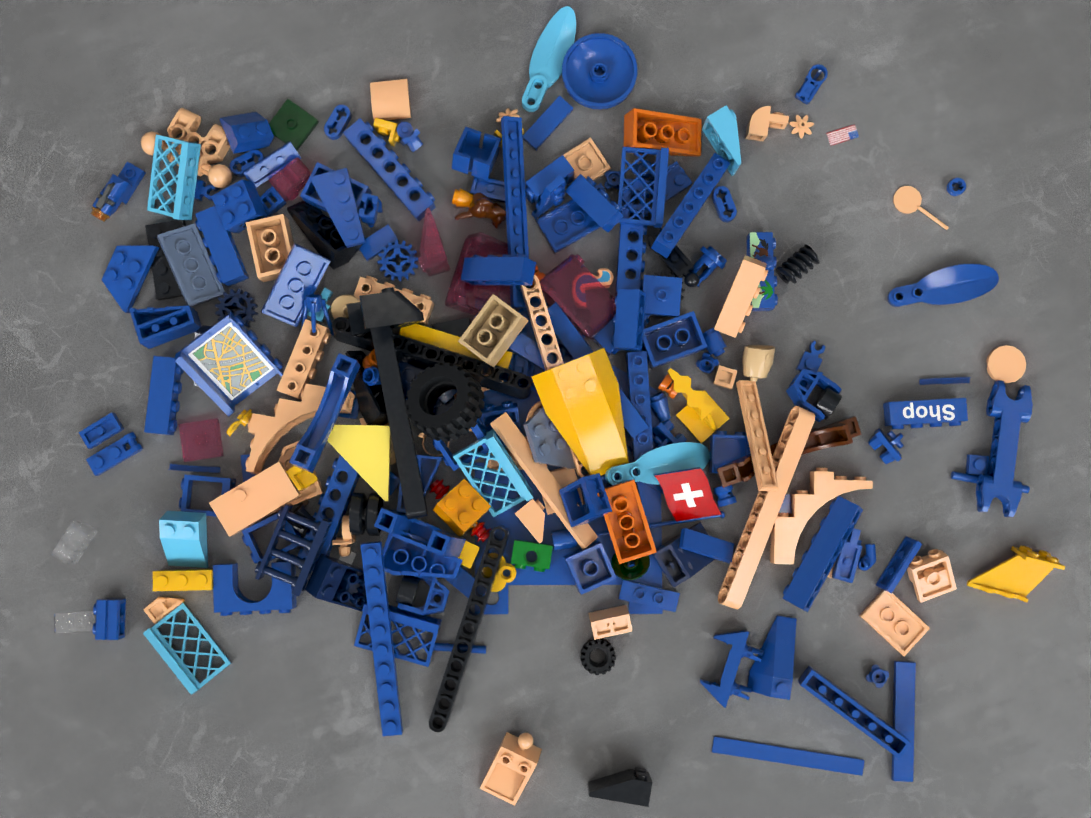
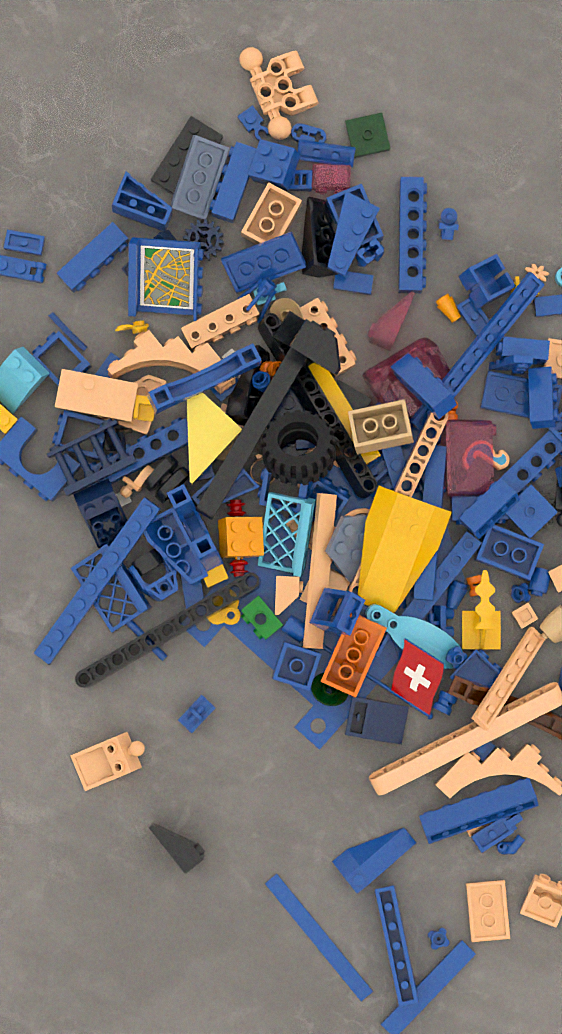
camera: 40 degrees right, 0 degrees up
(117, 190) = (192, 72): blue plate -> none
(127, 273) = (147, 140): blue wing -> none
(185, 179) = (238, 122): medium azure fence -> none
(201, 440) = (91, 314): clear pink plate -> none
(247, 132) = (329, 112): blue slope -> none
(341, 124) = (405, 167): blue beam -> none
(387, 128) = (437, 201): yellow bracket -> none
(390, 99) = (458, 181): light nougat slope -> none
(407, 260) = (347, 302): blue gear -> none
(484, 208) = (455, 327): reddish brown animal -> none
(547, 671) = (196, 713): none -> blue hips
(602, 667) = (235, 745): black tyre -> none
(610, 622) = (275, 720): light nougat hinge -> none
(649, 595) = (321, 726): blue plate -> none
(703, 453) = (453, 653): none -> blue plate
(706, 545) = (397, 727): blue tile -> none
(739, 650) = (321, 843): blue hose -> none
(898, 564) = (529, 870): blue tile -> none

